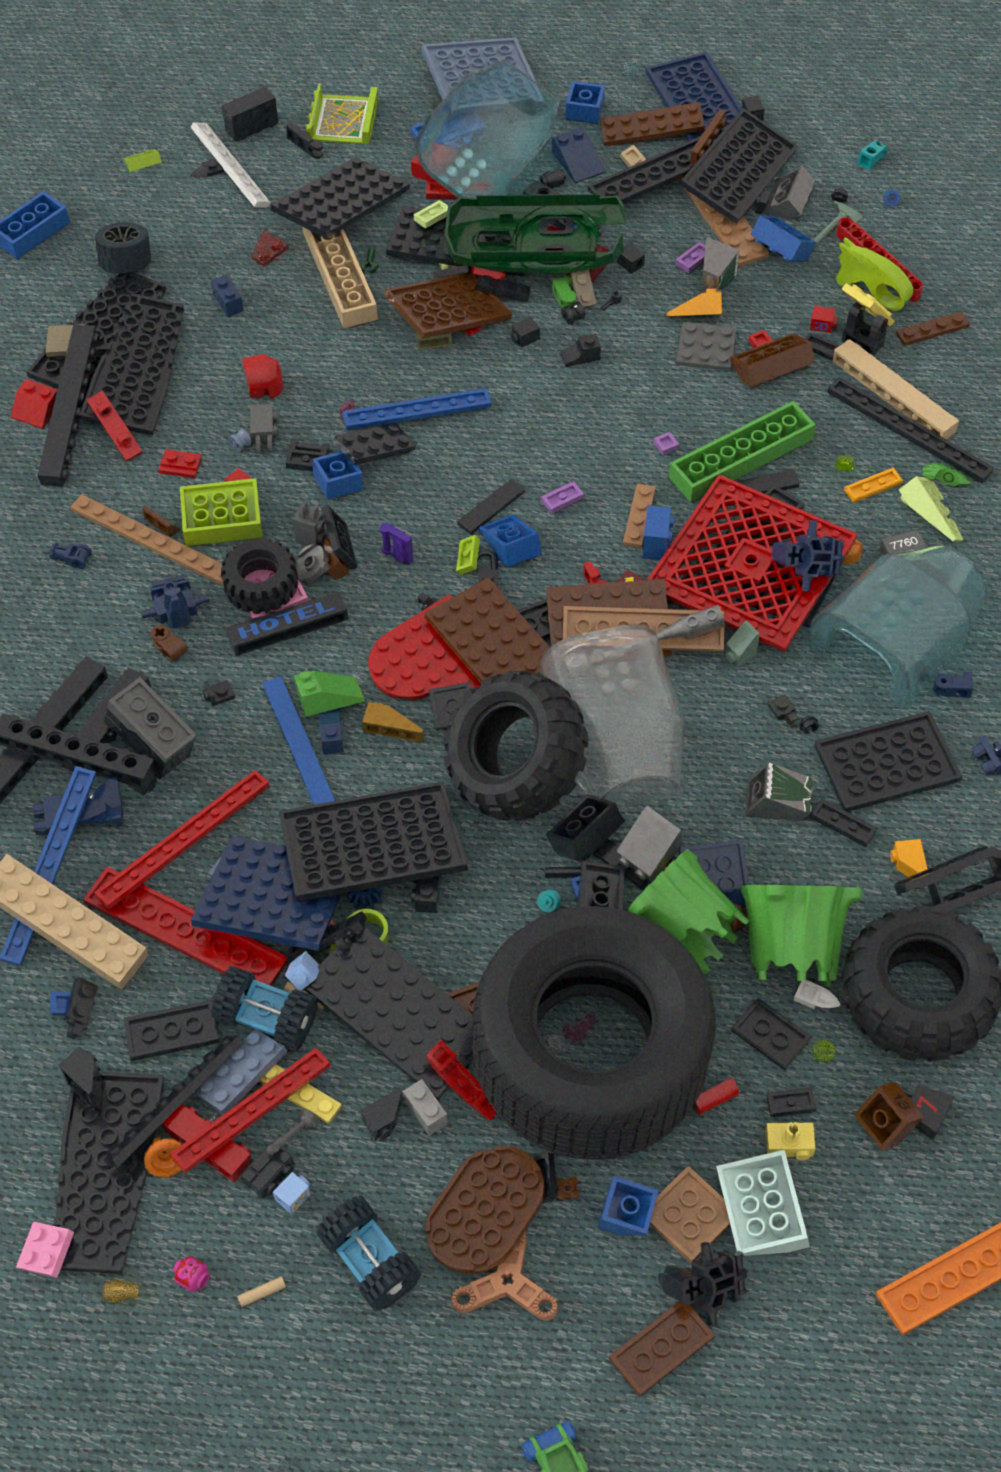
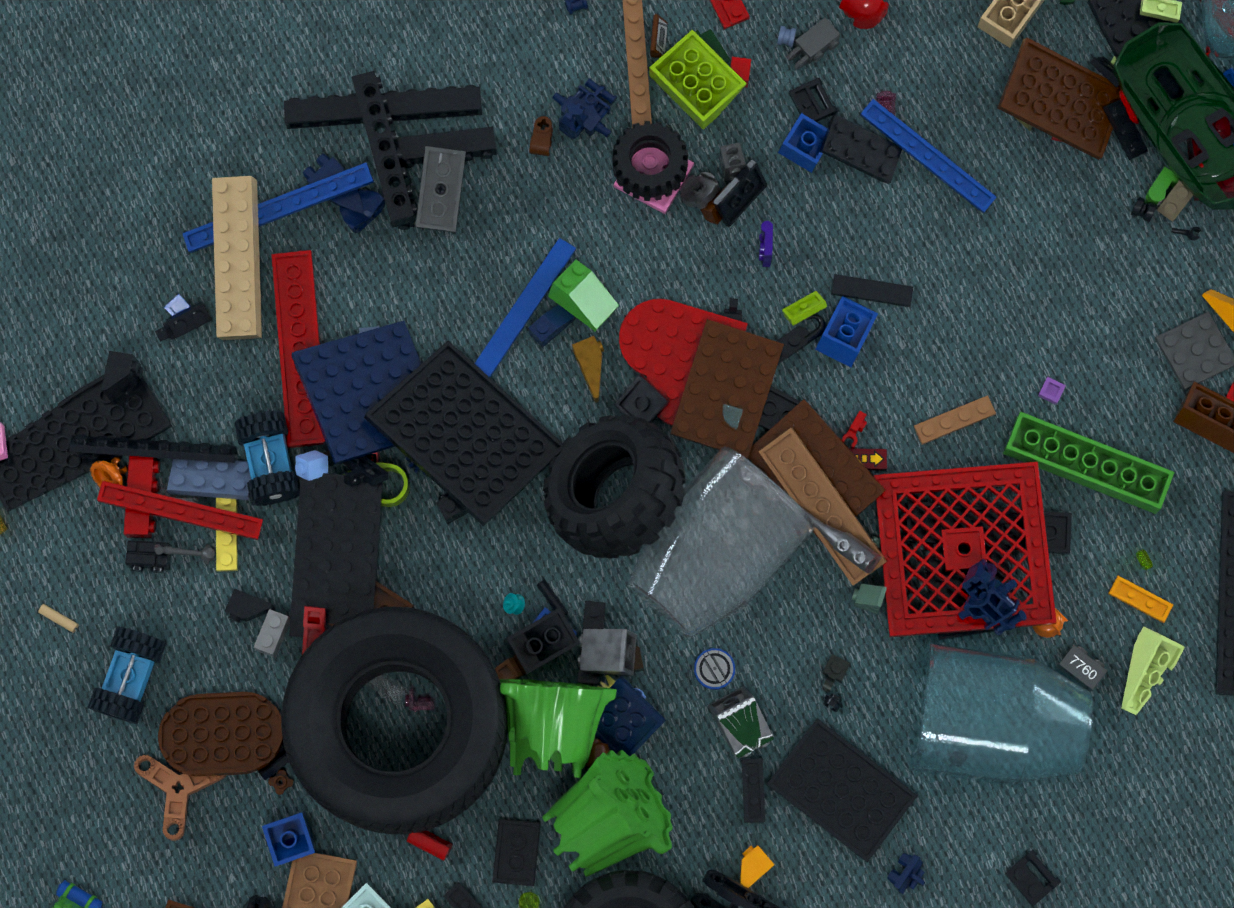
camera: 55 degrees right, 20 degrees up
(171, 1030) = (210, 401): black plate -> none
(181, 840) = (372, 287): red plate -> none
(191, 1273) = (37, 560): dark pink head -> none
(218, 693) = (525, 210): black bracket -> none
(287, 623) = (628, 215): black brick -> none
(292, 1192) = (143, 585): light blue brick -> none
(518, 644) = (732, 415): none -> clear light blue tile
(525, 332) = (1087, 184): black brick -> none
(562, 497) = (925, 343): medium lavender plate -> none
(583, 351) = (1103, 248): black arch -> none
(585, 828) = (594, 588): black brick -> none
(657, 532) = (937, 450): blue brick -> none
(718, 790) = (714, 669): none -> tile
(783, 480) = (1069, 503): black tile -> none
(815, 995) = (572, 878): white plate -> none
(945, 474) = (1199, 653): bright green hair -> none
(954, 685) = (956, 793): dark blue leg -> none

